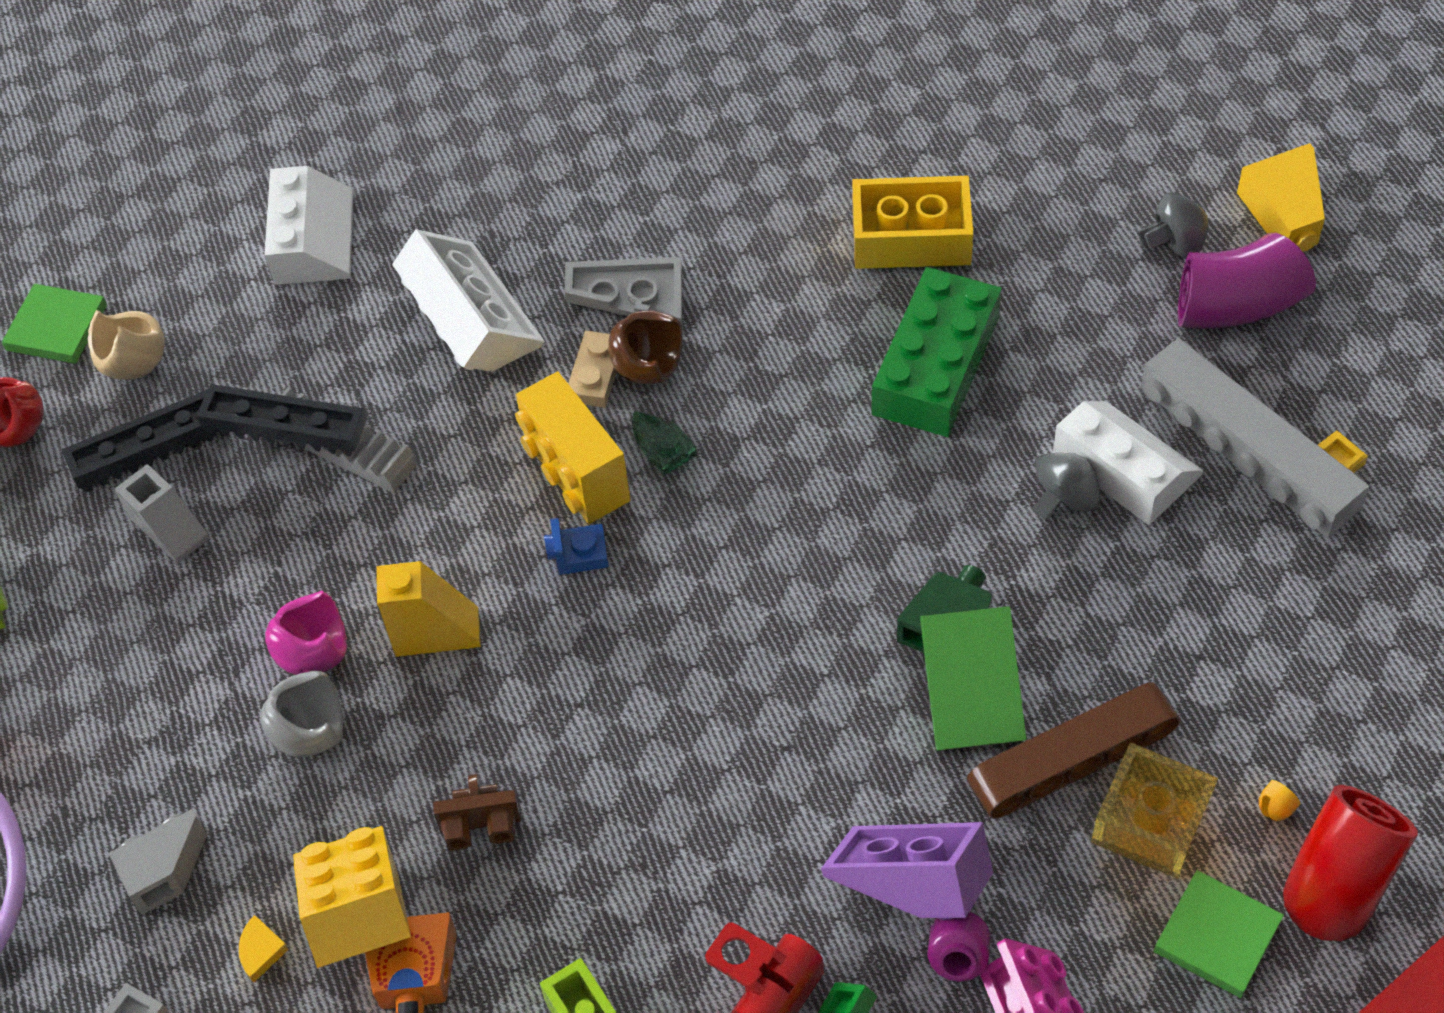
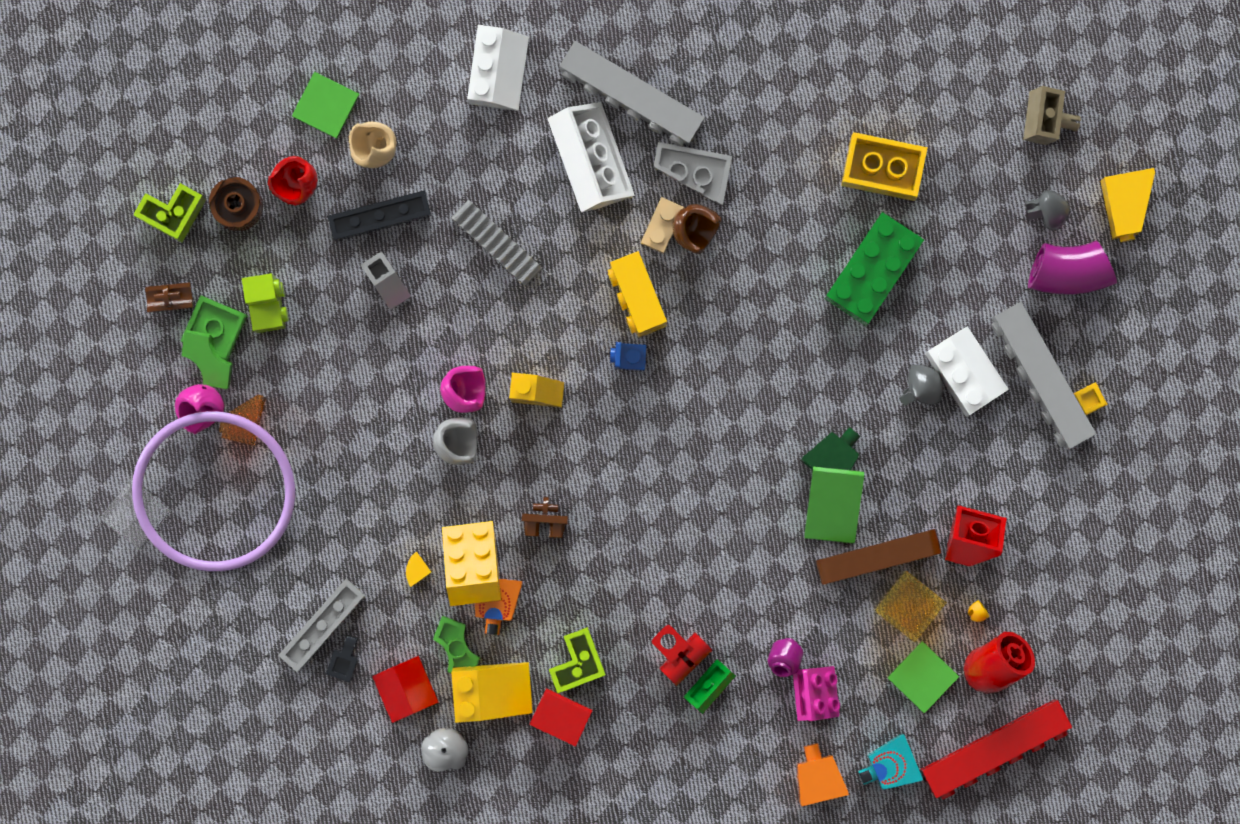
camera: 10 degrees right, 30 degrees up
(160, 861) = (367, 510): light grey slope -> none
(281, 418) = (465, 232): black gear -> none
(514, 216) = (631, 93): none -> light grey brick
(662, 441) = (692, 288): clear green plate -> none
(915, 866) = (771, 610): medium lavender slope -> none
(1128, 121) = (1046, 116): none -> dark tan brick
(1226, 686) = (975, 537): none -> red slope

